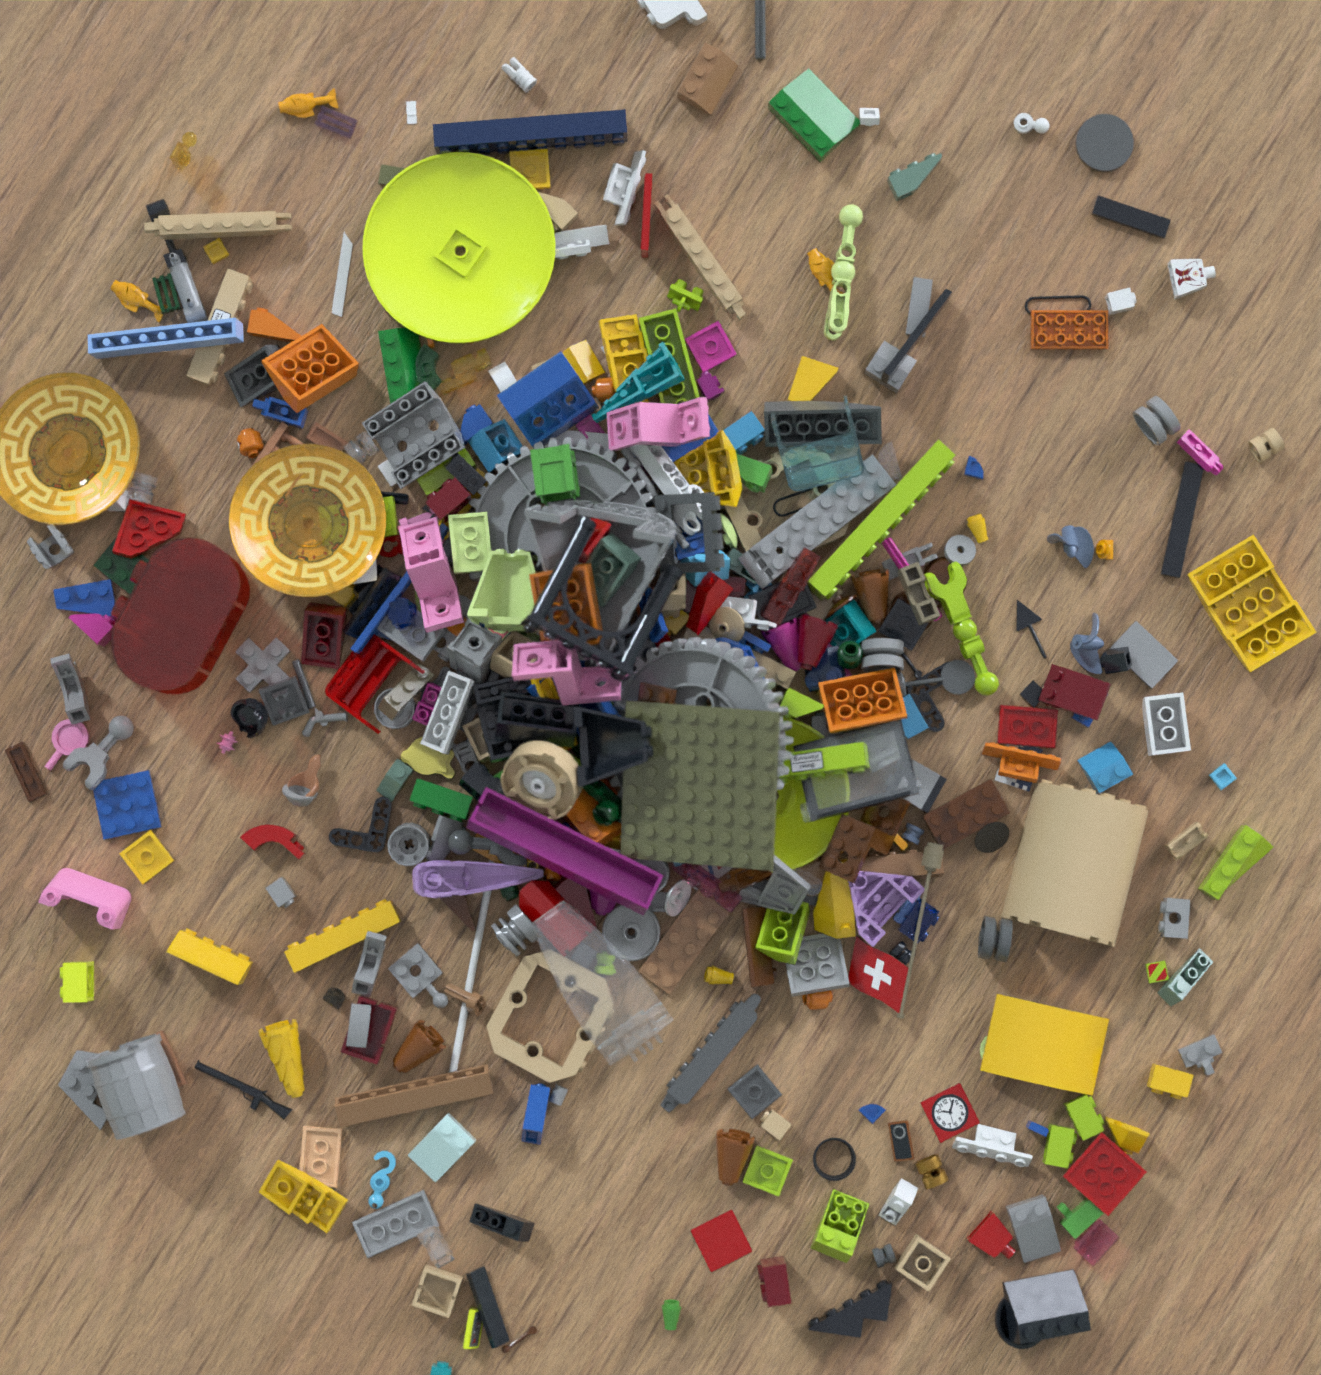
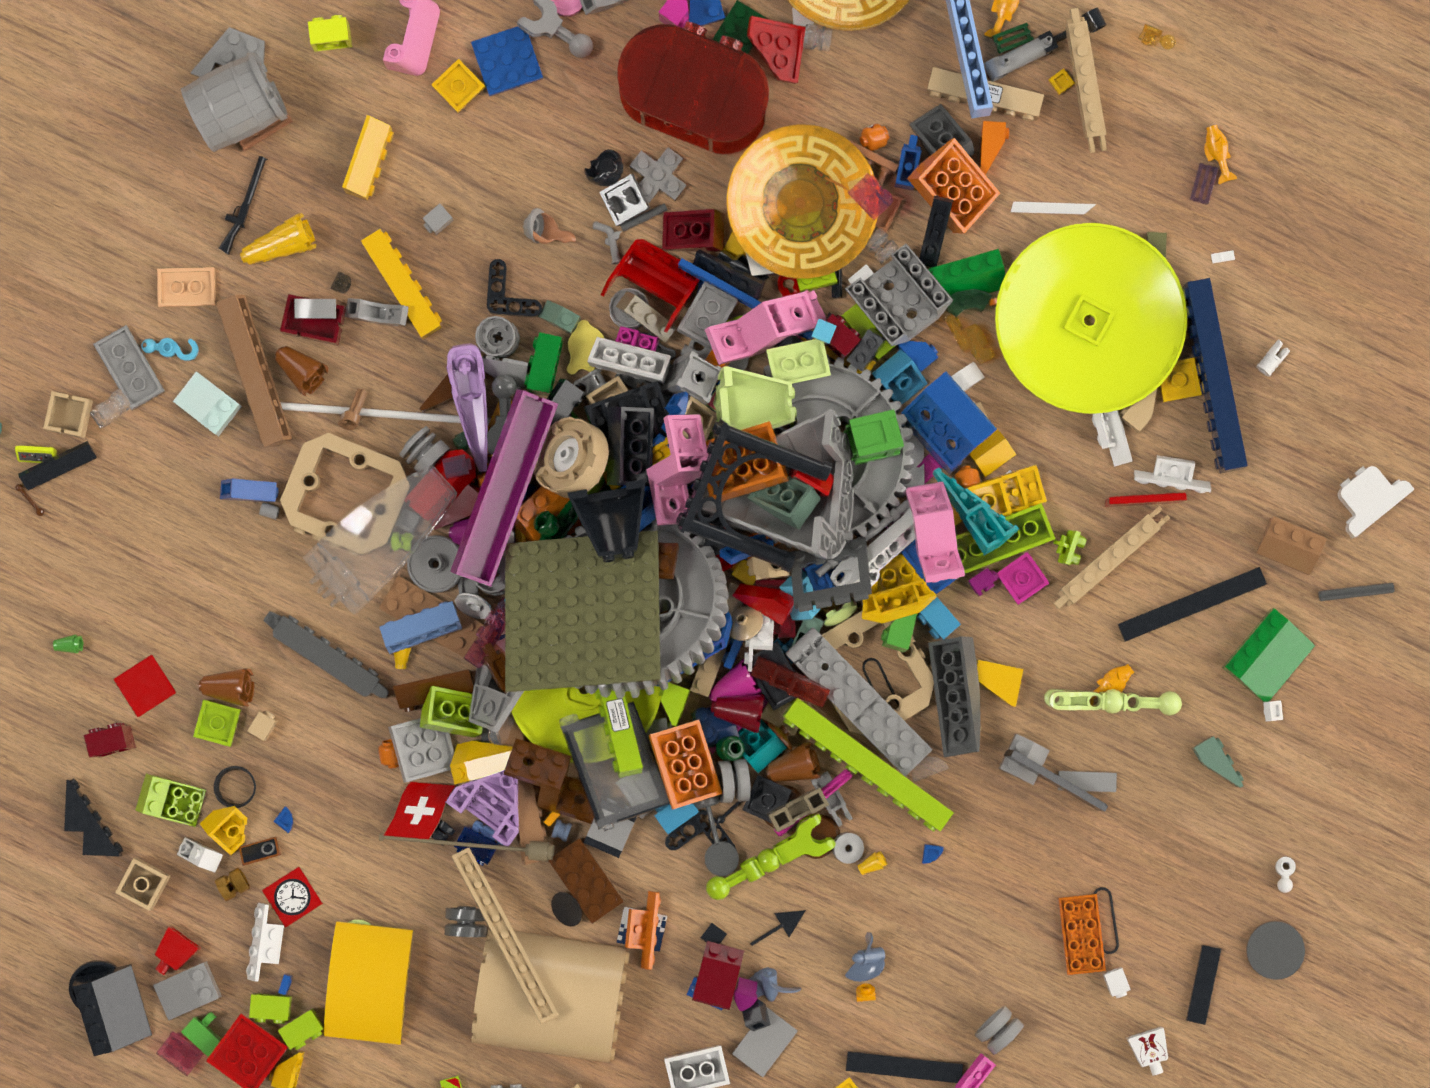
camera: 85 degrees right, 0 degrees up
(227, 742) = (577, 149): bright pink wheel -> none
(267, 833) = (494, 206): red arch -> none
(303, 1196) = (146, 275): yellow slope -> none
(310, 450) = (871, 196): none -> clear pink bracket
(353, 391) = (935, 231): none -> black tile
(402, 613) = (721, 304): clear blue brick -> none
(428, 974) = (375, 372): light grey plate -> none
(442, 512) = (823, 331): none -> medium azure tile
(502, 669) = (677, 405): none -> blue slope
(502, 1223) = (140, 470): black slope -> none
(537, 897) = (456, 466): none -> clear purple brick
(694, 953) = (420, 627): none -> medium blue brick
(754, 183) = (1192, 604): none -> black tile
(754, 1091) = (292, 702): dark grey tile -> none
(821, 460) = (920, 700): clear light blue windscreen -> none
(874, 1172) = (226, 828): none -> yellow slope
(879, 1256) = (144, 842): dark grey wheel -> none
(1015, 899) = (505, 936): none -> tan plate
(1027, 726) = (680, 933): red tile -> none
(1095, 667) = (745, 993): none -> magenta tile
(1104, 767) = (648, 1014): dark azure slope -> none

